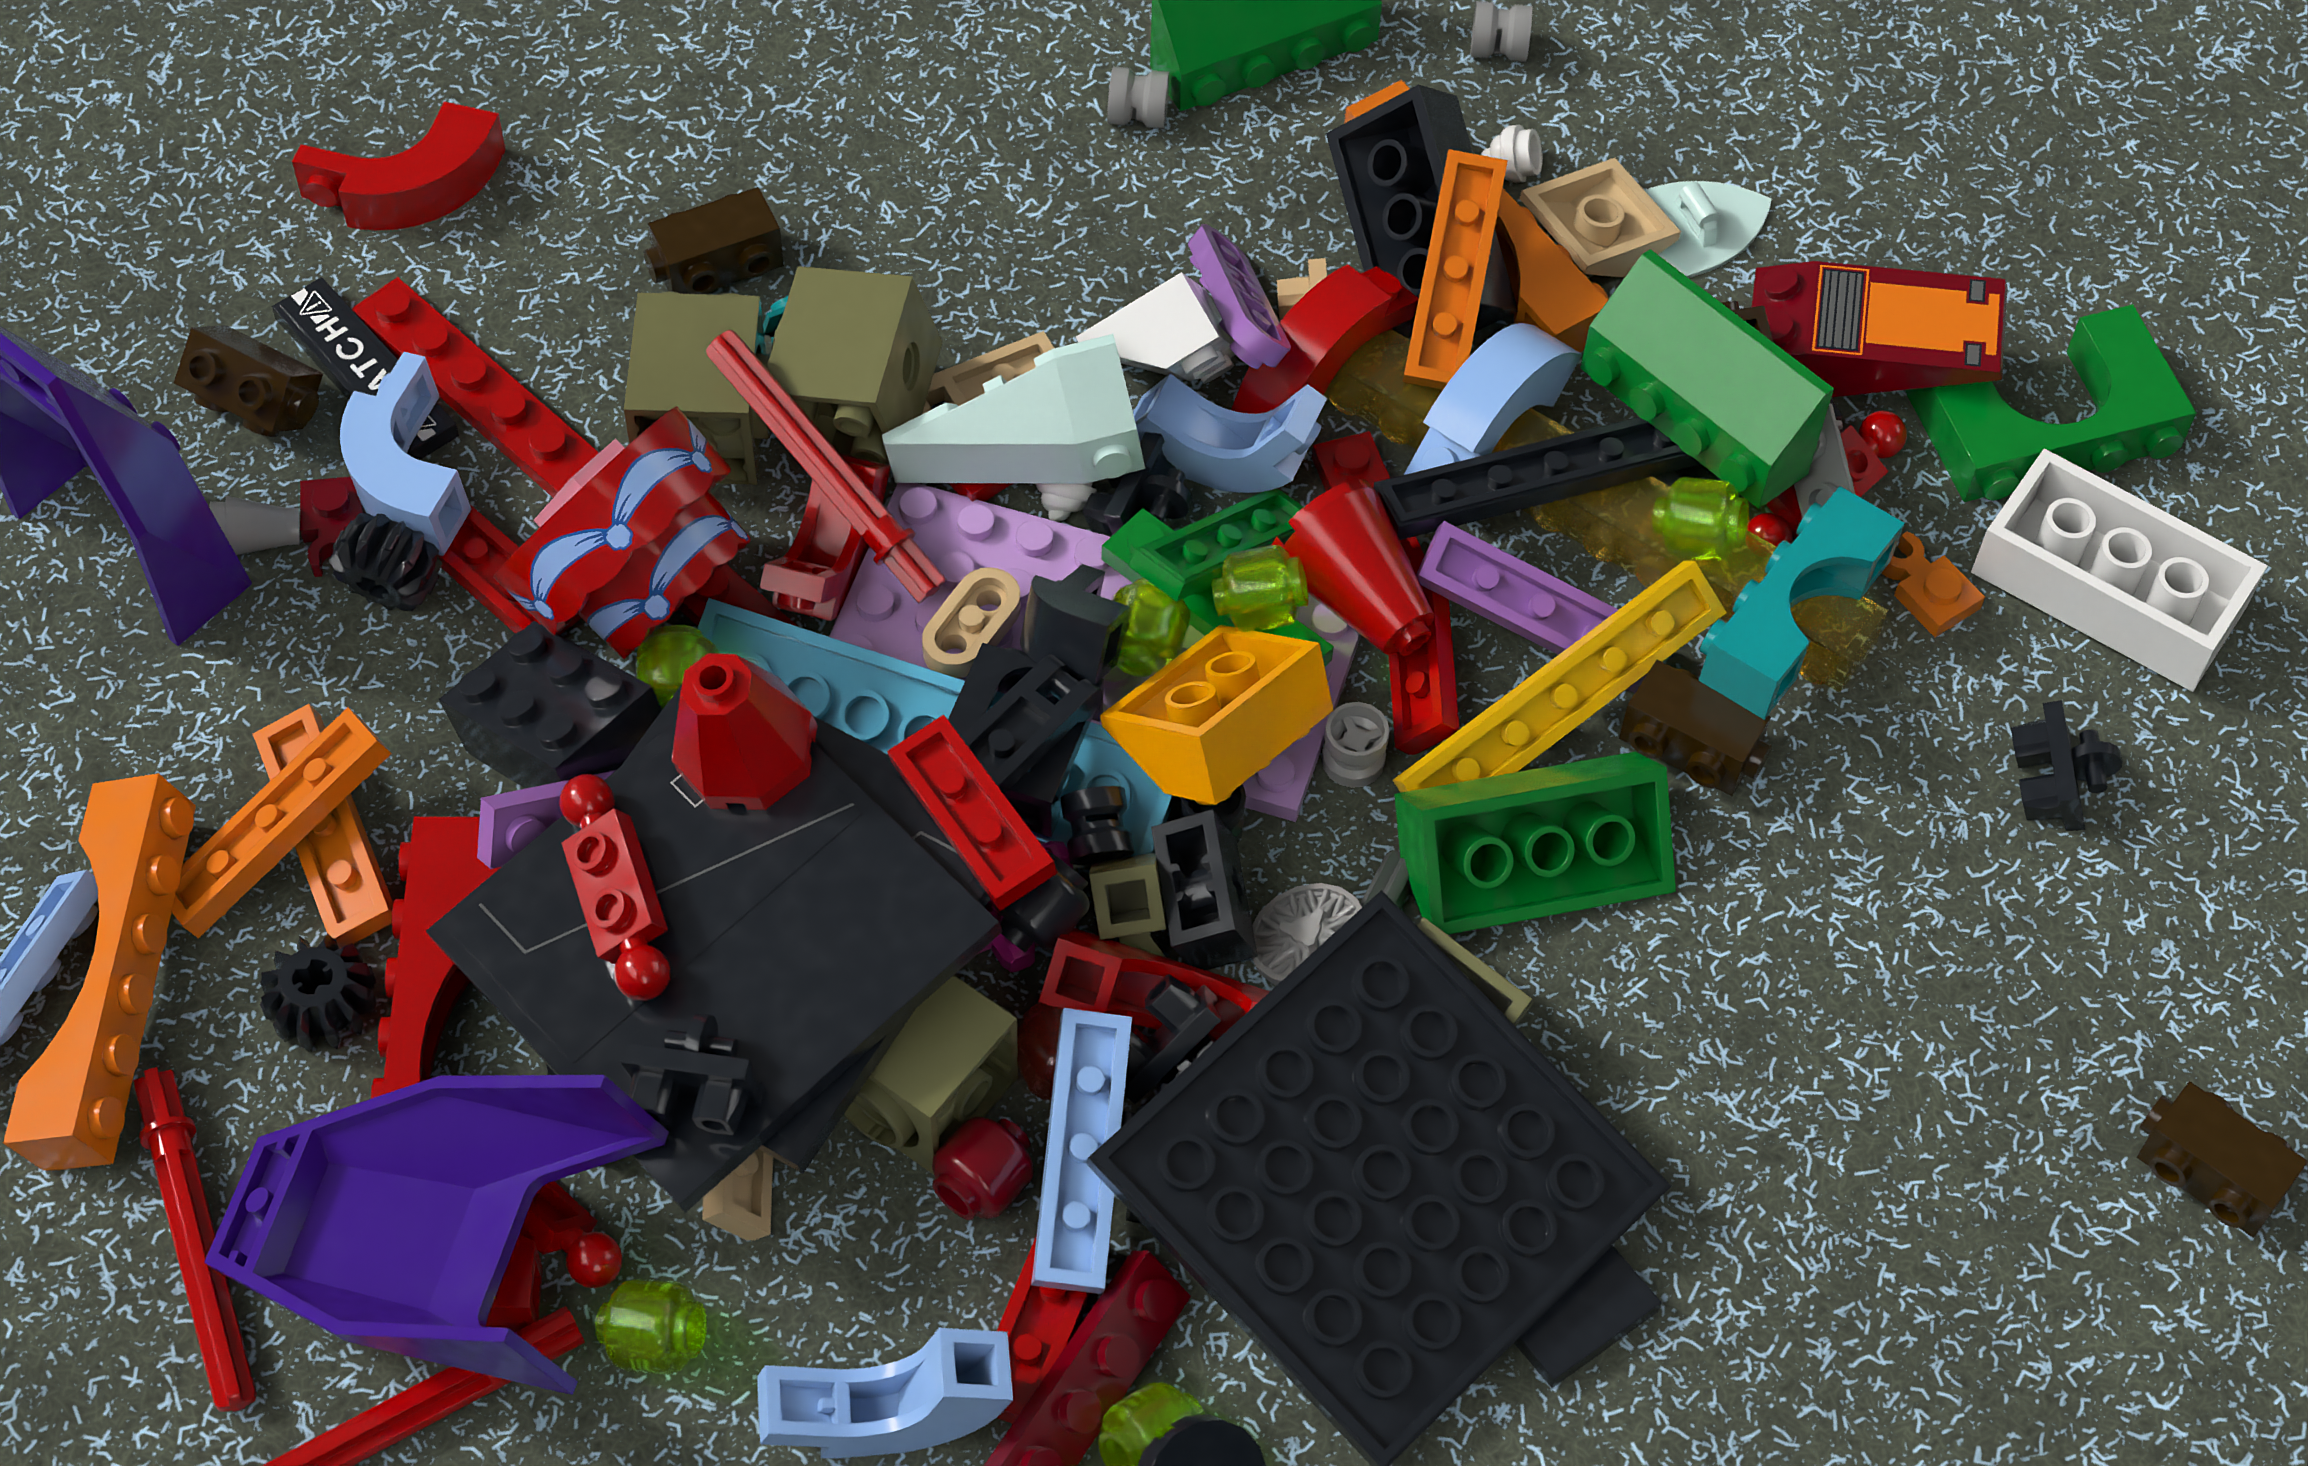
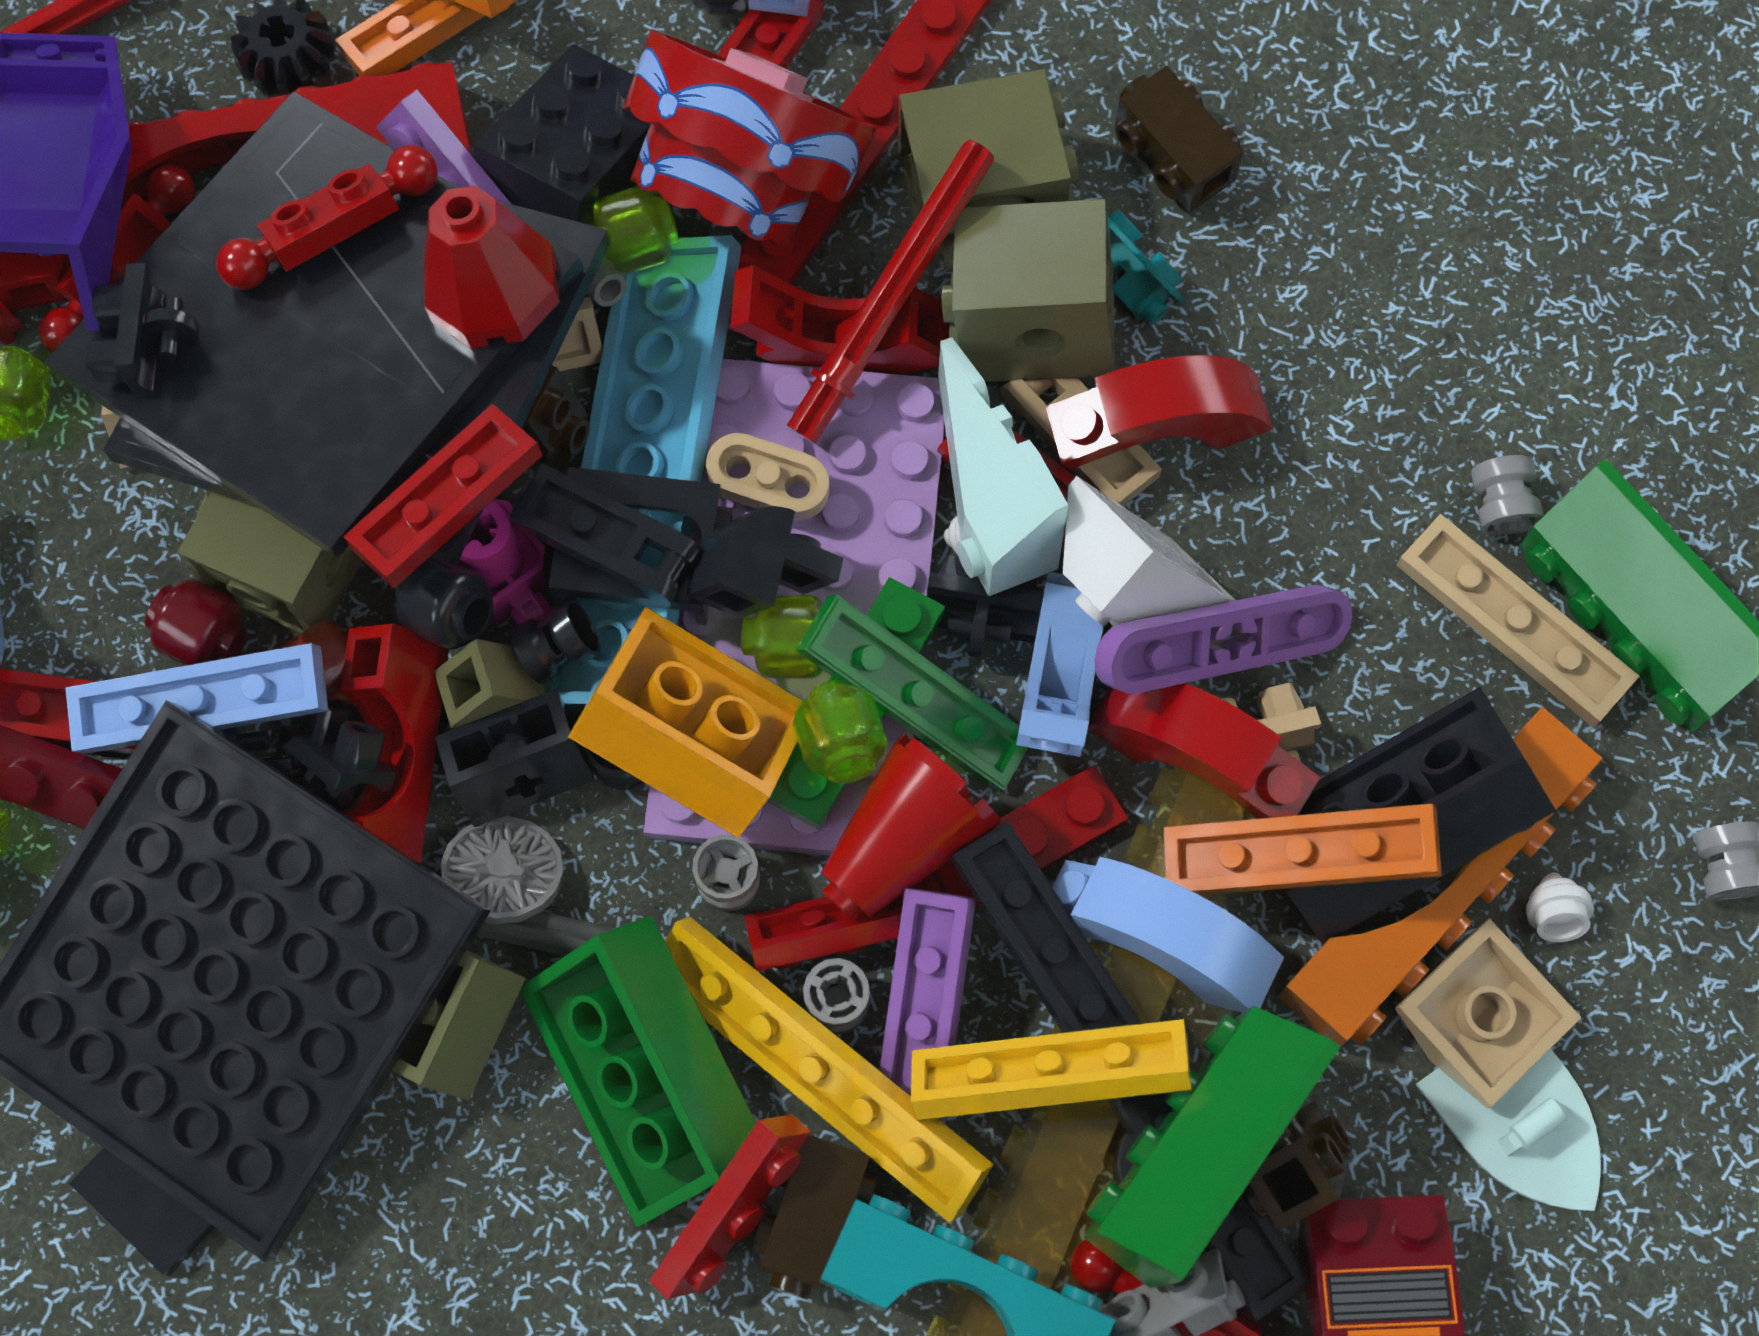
camera: 80 degrees right, 15 degrees up
(993, 310) = (1159, 400): none -> red arch
(1252, 121) = (1517, 620): none -> tan plate
(1490, 672) = (834, 1005): none -> light grey wheel
(1613, 492) = (1050, 1070): none -> yellow plate
(1689, 775) = (731, 1207): none -> red plate
(1701, 519) = (1049, 1175): clear neon green head -> none

